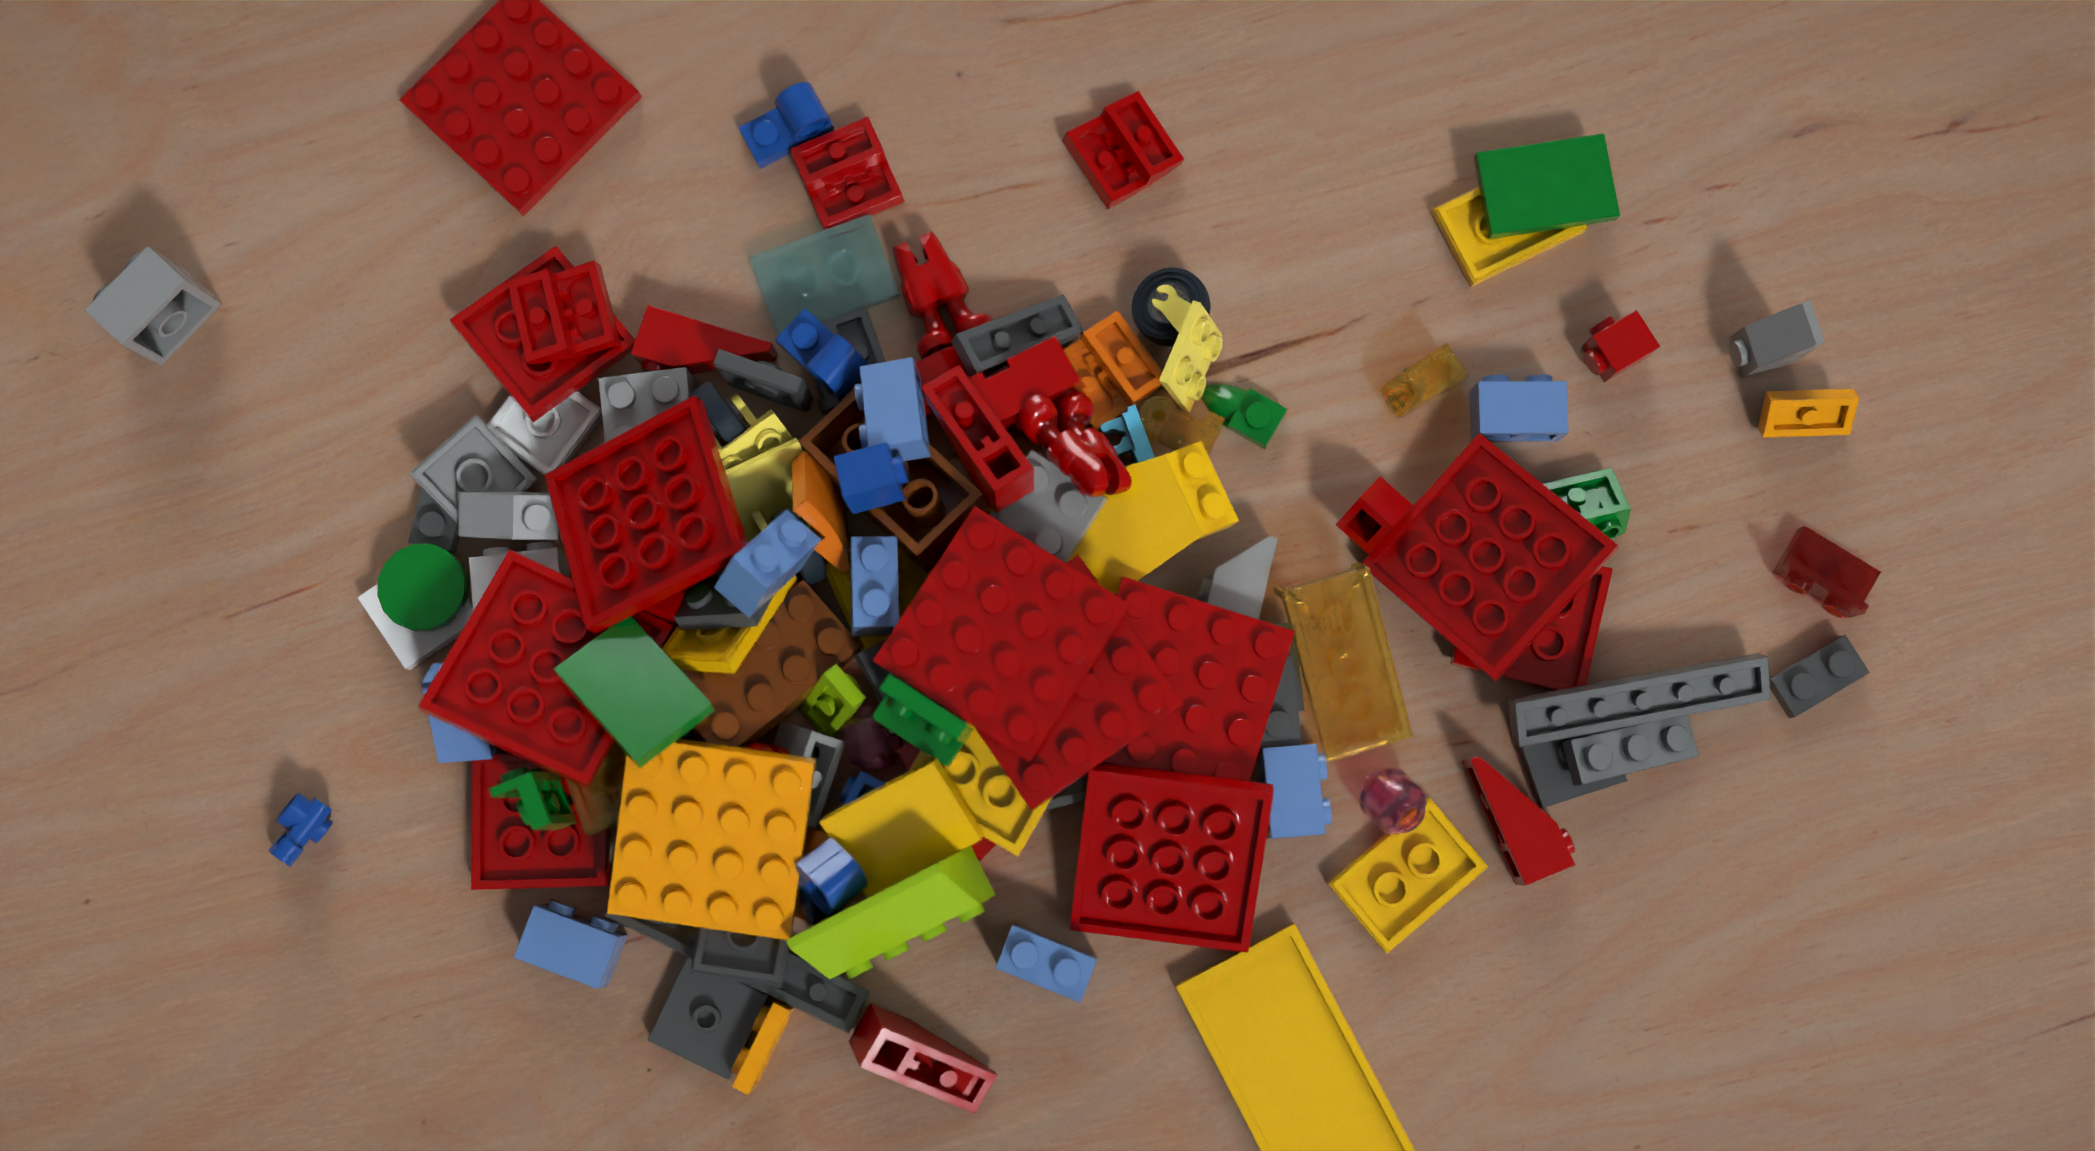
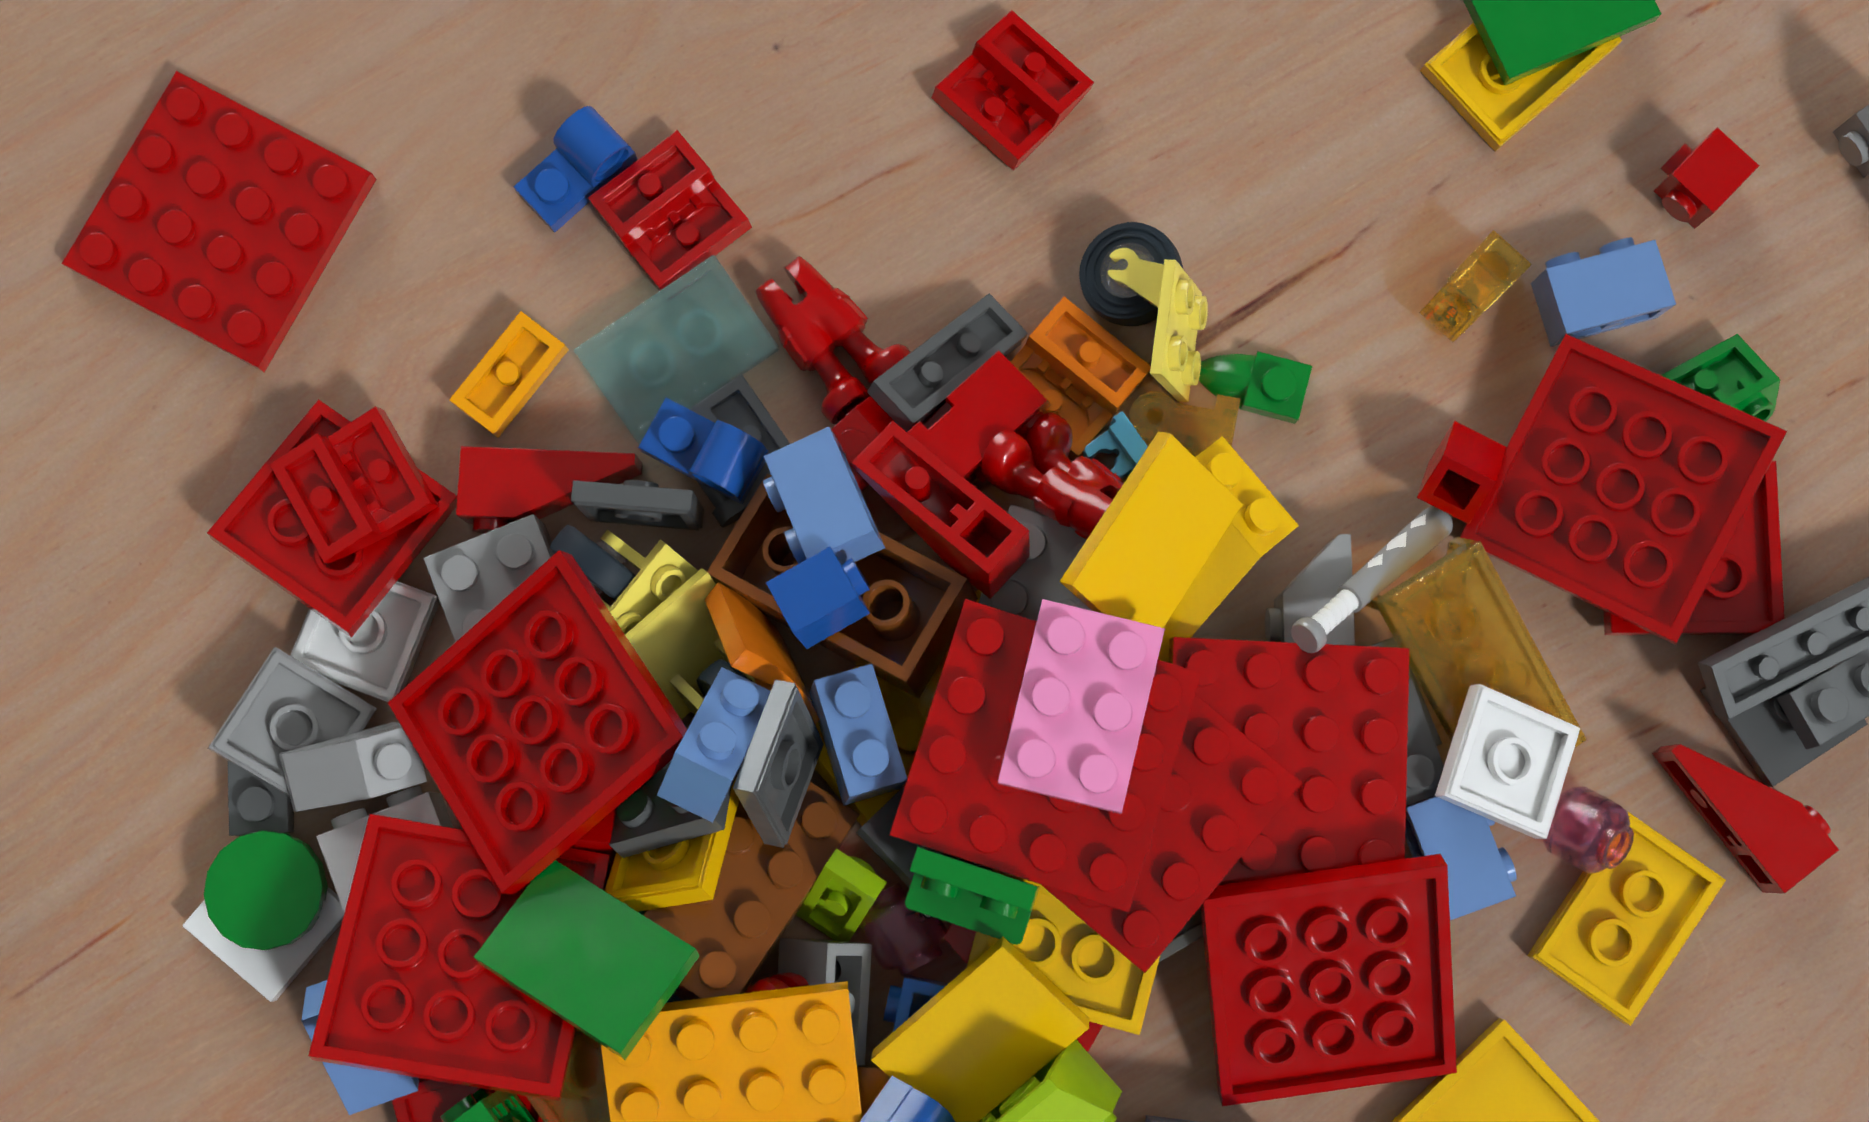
camera: 20 degrees left, 0 degrees up
(698, 263) = (509, 374): none -> light orange plate
(809, 590) = (779, 764): none -> dark grey plate
(1034, 603) = (1081, 706): none -> bright pink plate
(1122, 500) = (1153, 536): none -> yellow tile
(1287, 573) = (1378, 573): none -> light grey piece
(1346, 734) = (1507, 761): none -> white tile

